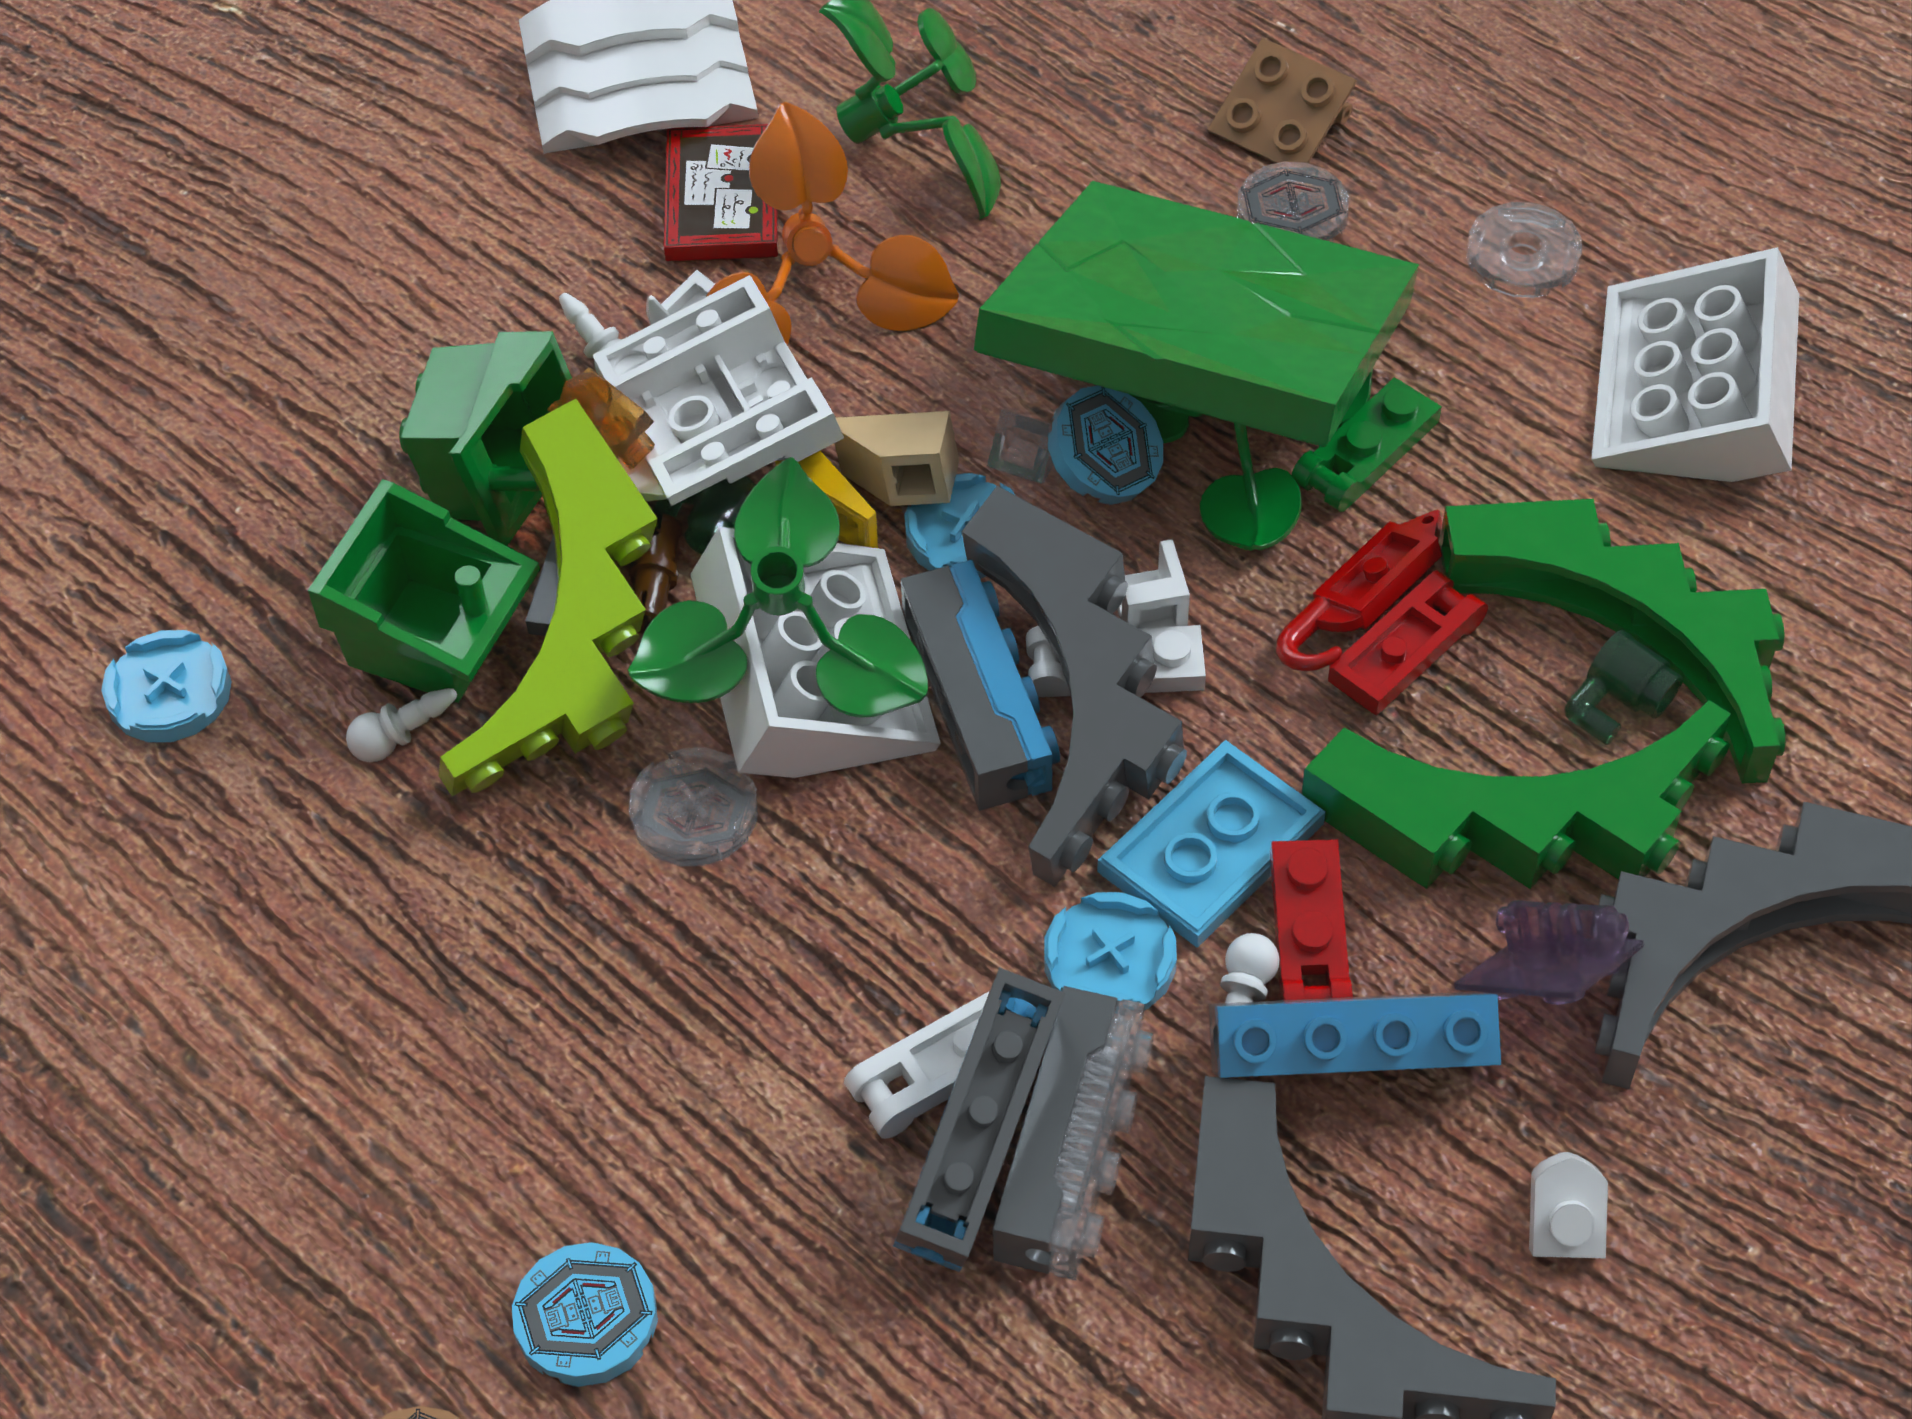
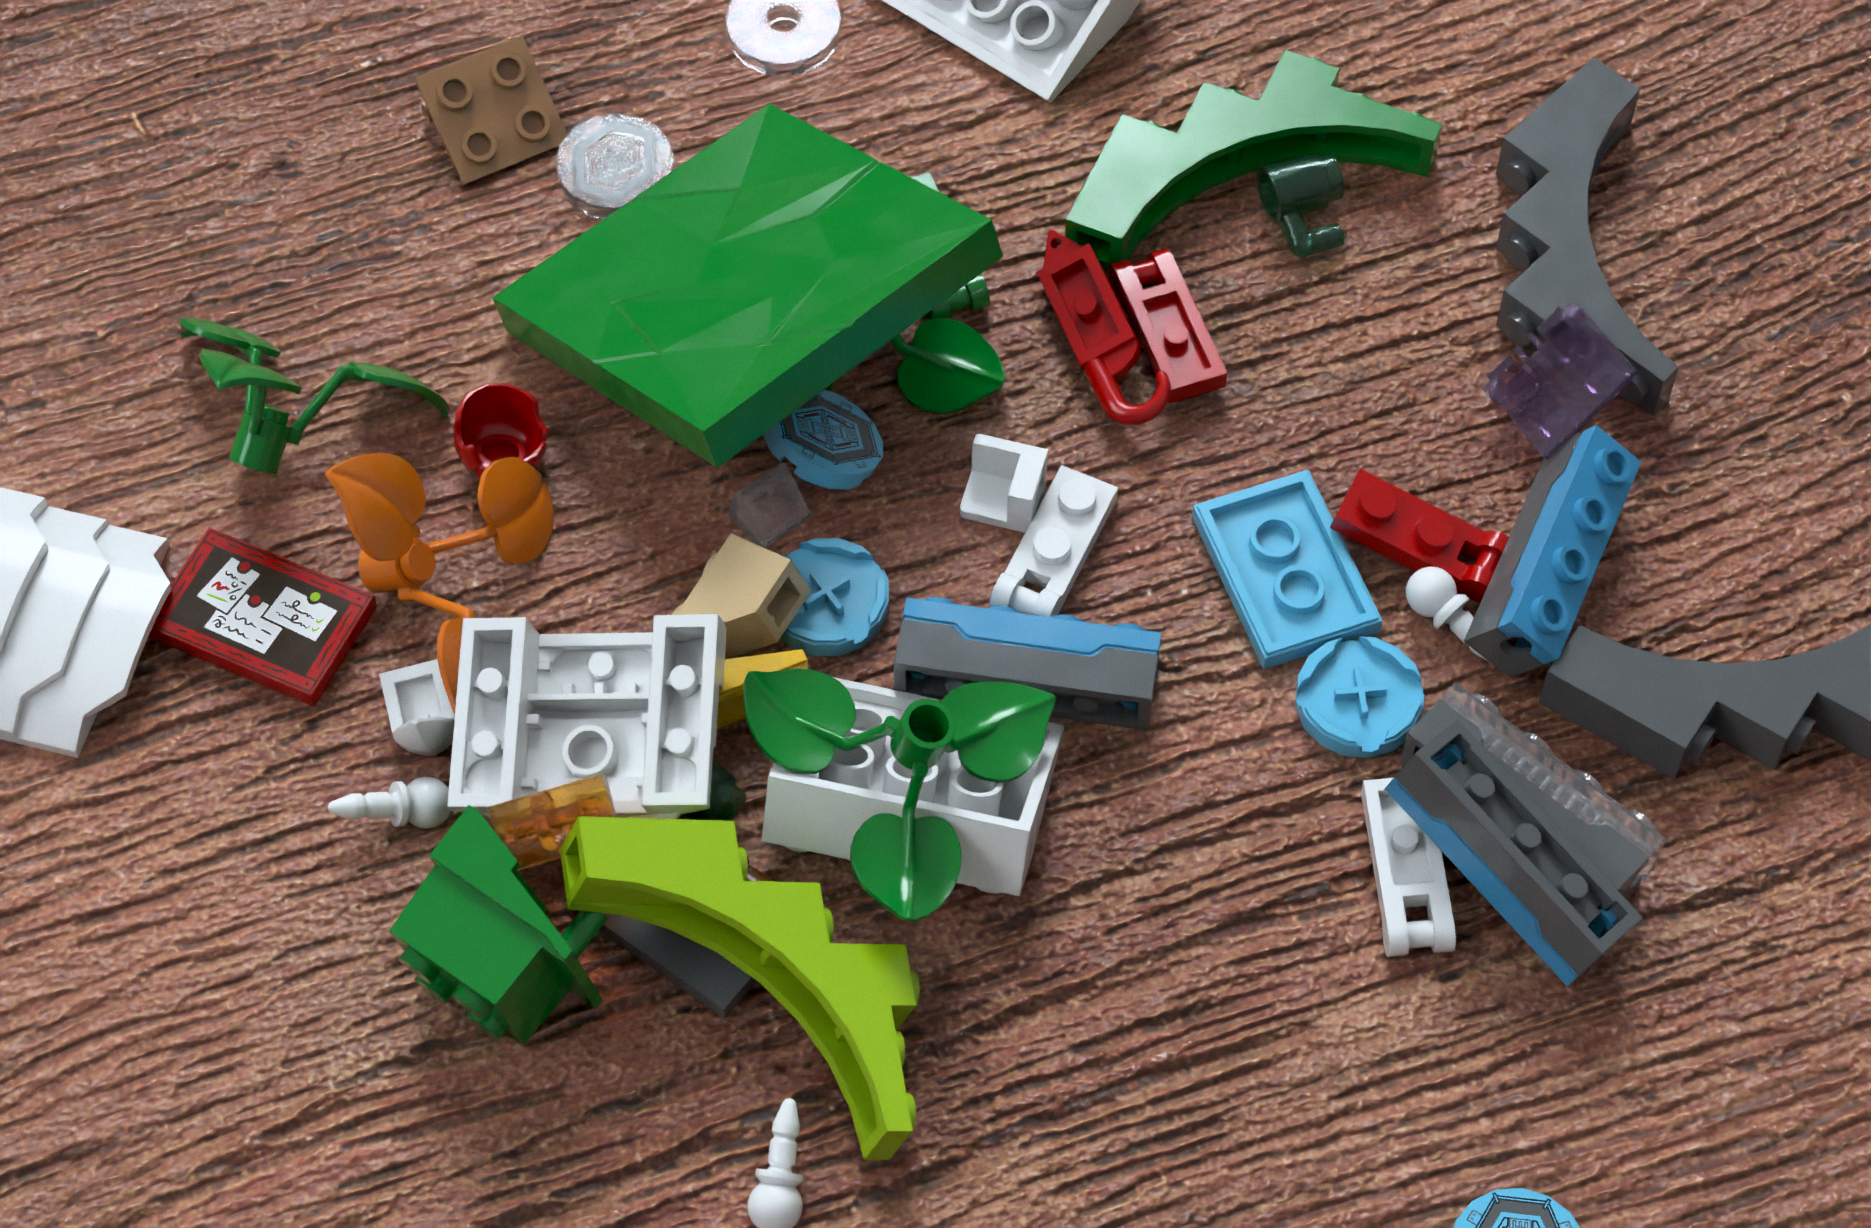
camera: 65 degrees left, 5 degrees up
(418, 592) = (684, 1068): green piece -> none
(693, 807) = (1020, 956): clear tile -> none
(972, 240) = (498, 424): none -> red hair
(1116, 737) = (1085, 550): dark grey arch -> none
(1524, 825) = (1368, 392): green arch -> none
(1568, 1208) = (1769, 488): white plate -> none

